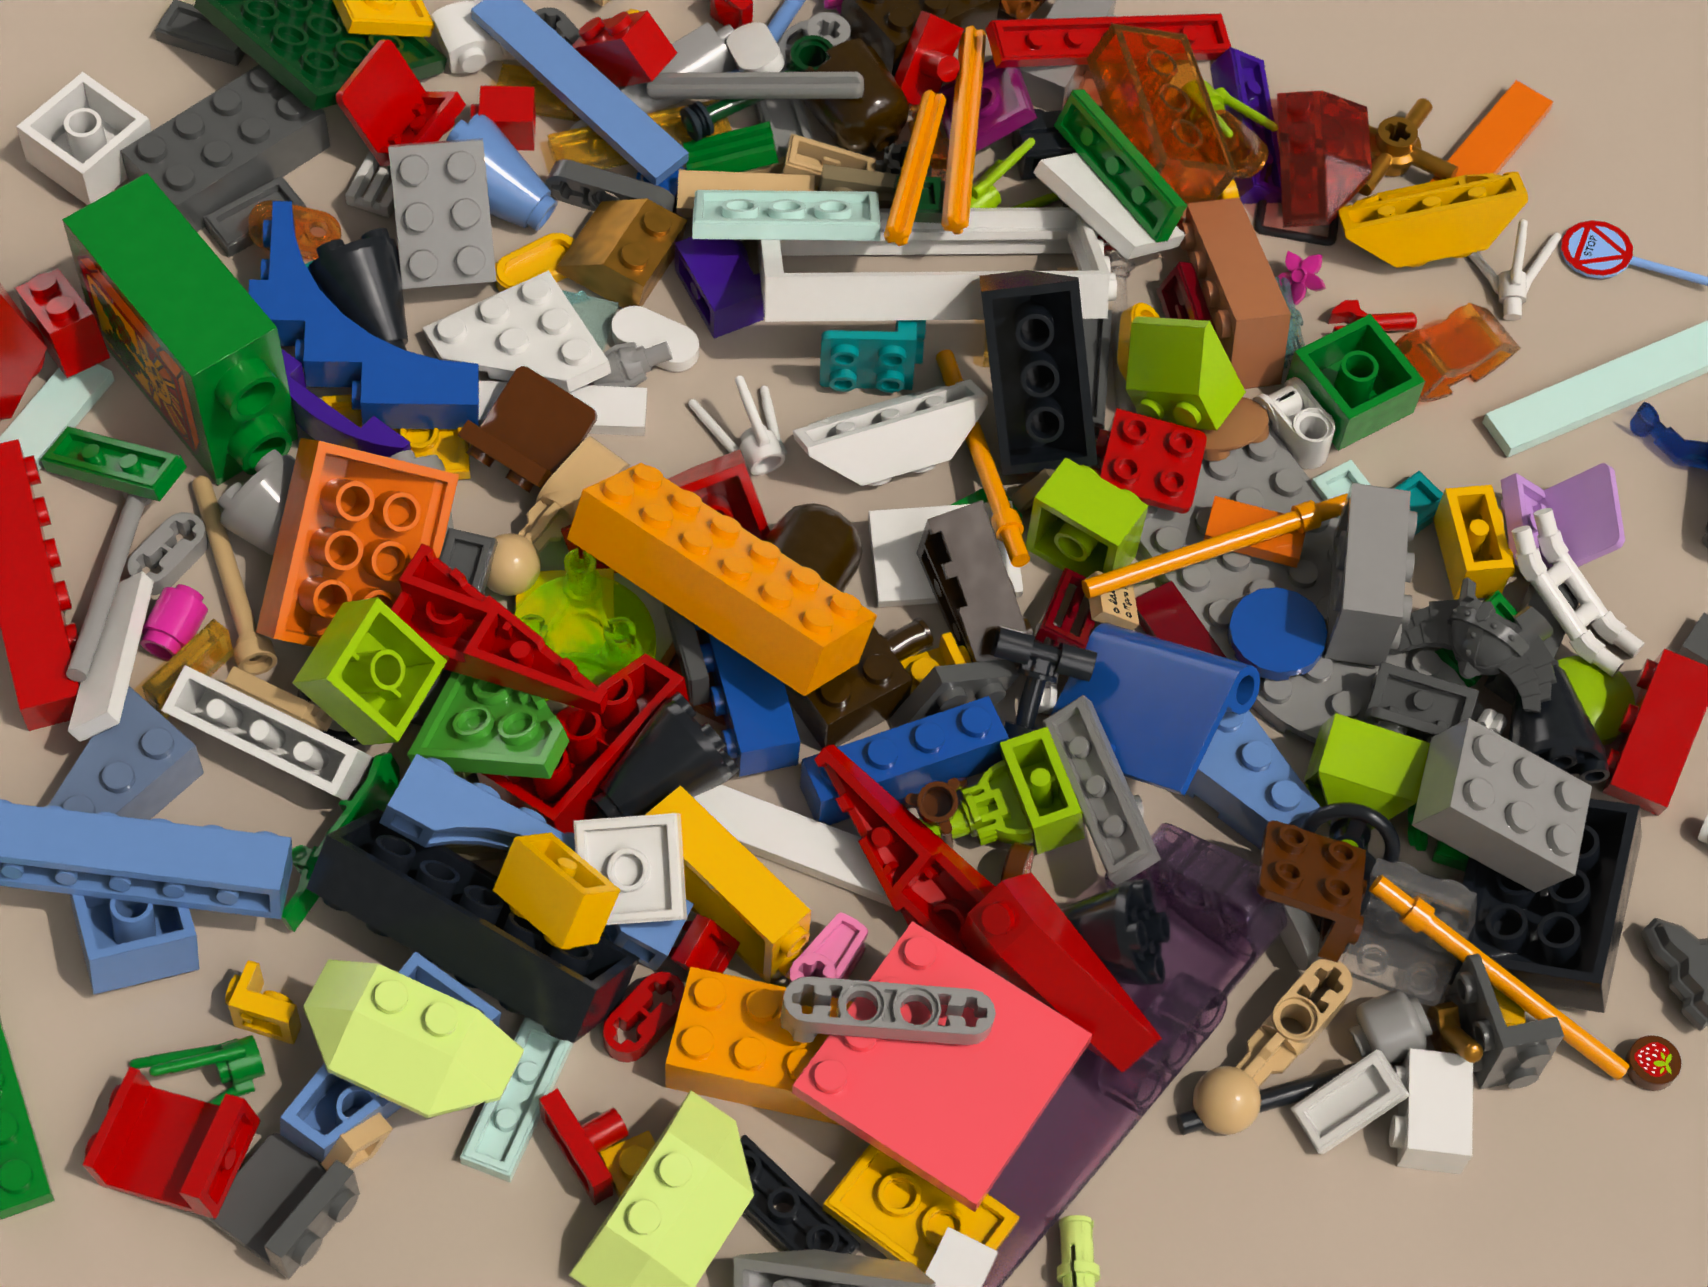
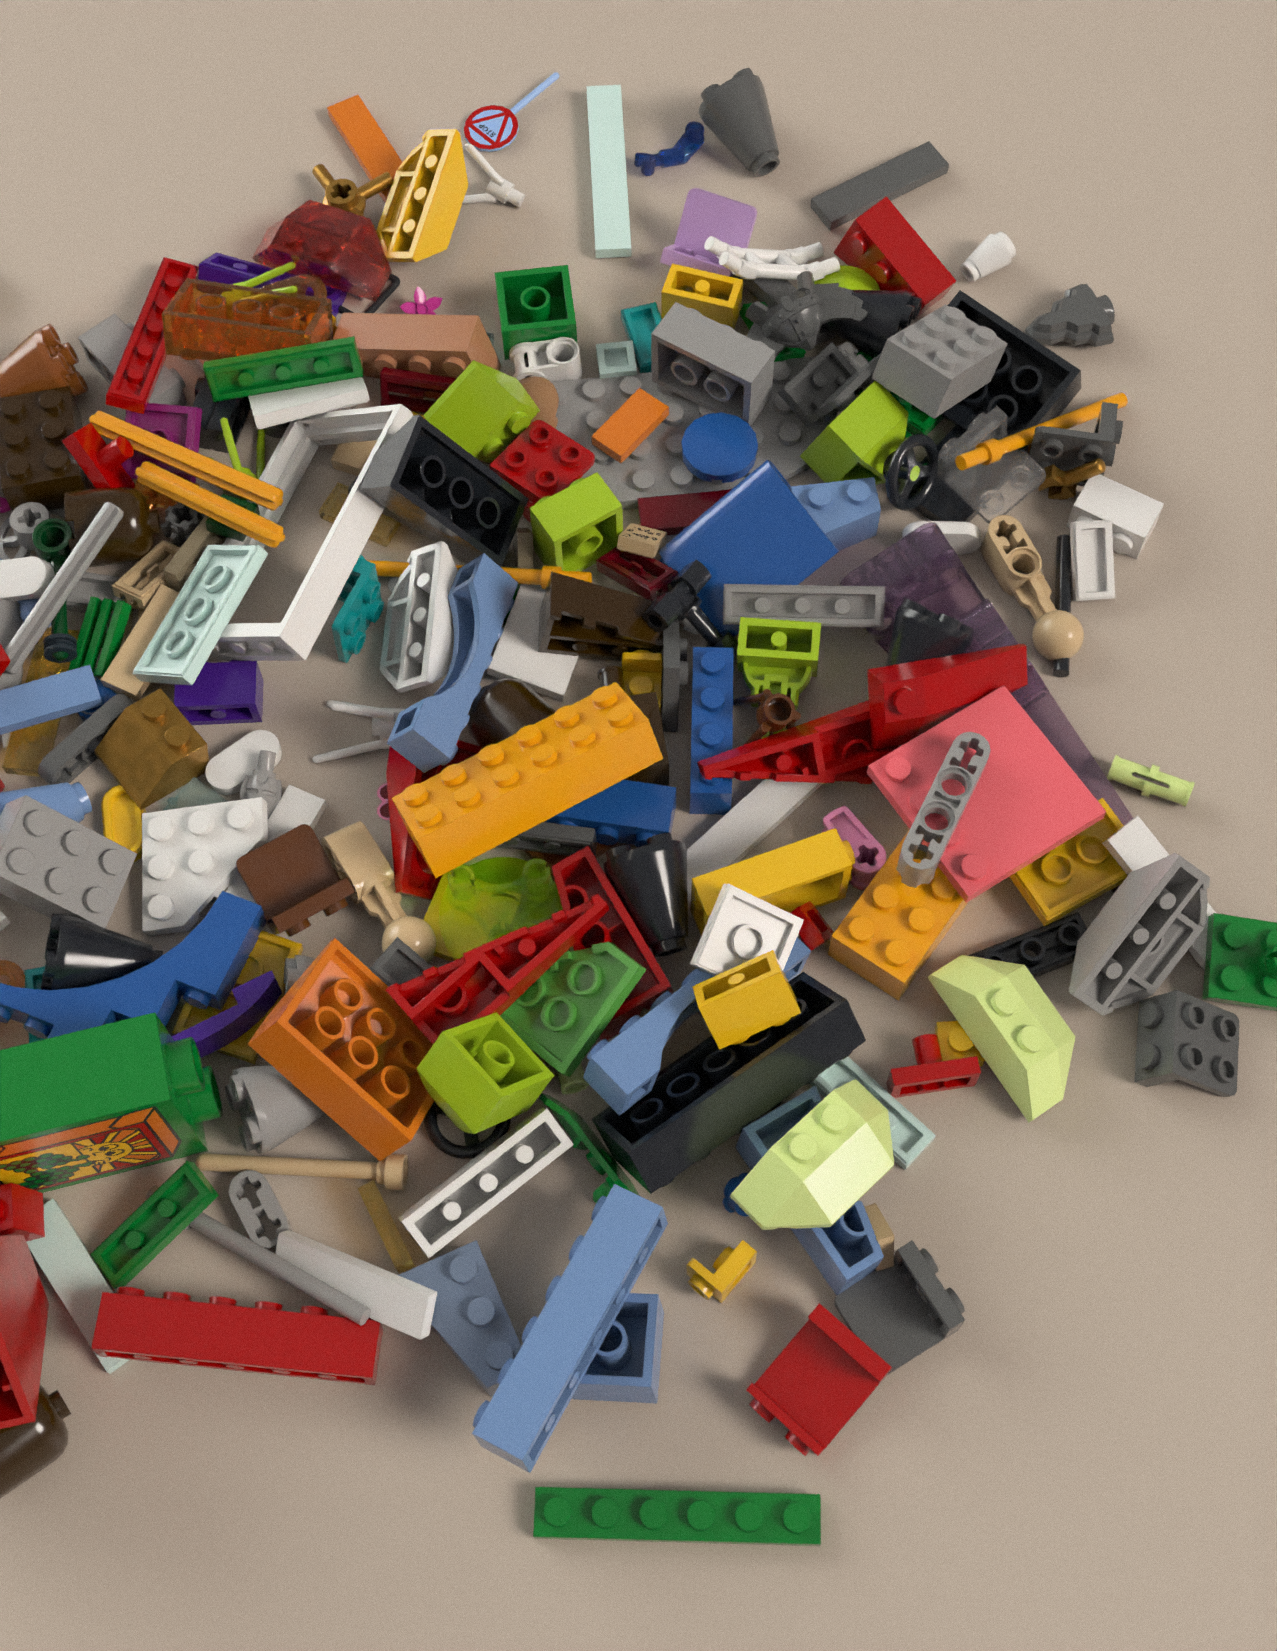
camera: 60 degrees left, 5 degrees up
(173, 621) = (333, 1224): dark pink brick -> none
(234, 1062) = (763, 1310): green plant -> none
(278, 699) = (453, 1163): tan tile -> none
(636, 1009) = (848, 983): red beam -> none
(935, 465) = (478, 603): none -> medium blue arch
(1018, 860) = (828, 691): reddish brown tile -> none
(1302, 518) = (641, 389): light orange bar -> none
(1317, 878) = (941, 499): reddish brown bracket -> none
(1350, 311) = (480, 289): red bar -> none
(1391, 1025) = (1046, 513): light grey head -> none
(1460, 347) = (537, 237): clear orange brick -> none
(1653, 1063) = (1124, 378): reddish brown tile -> none

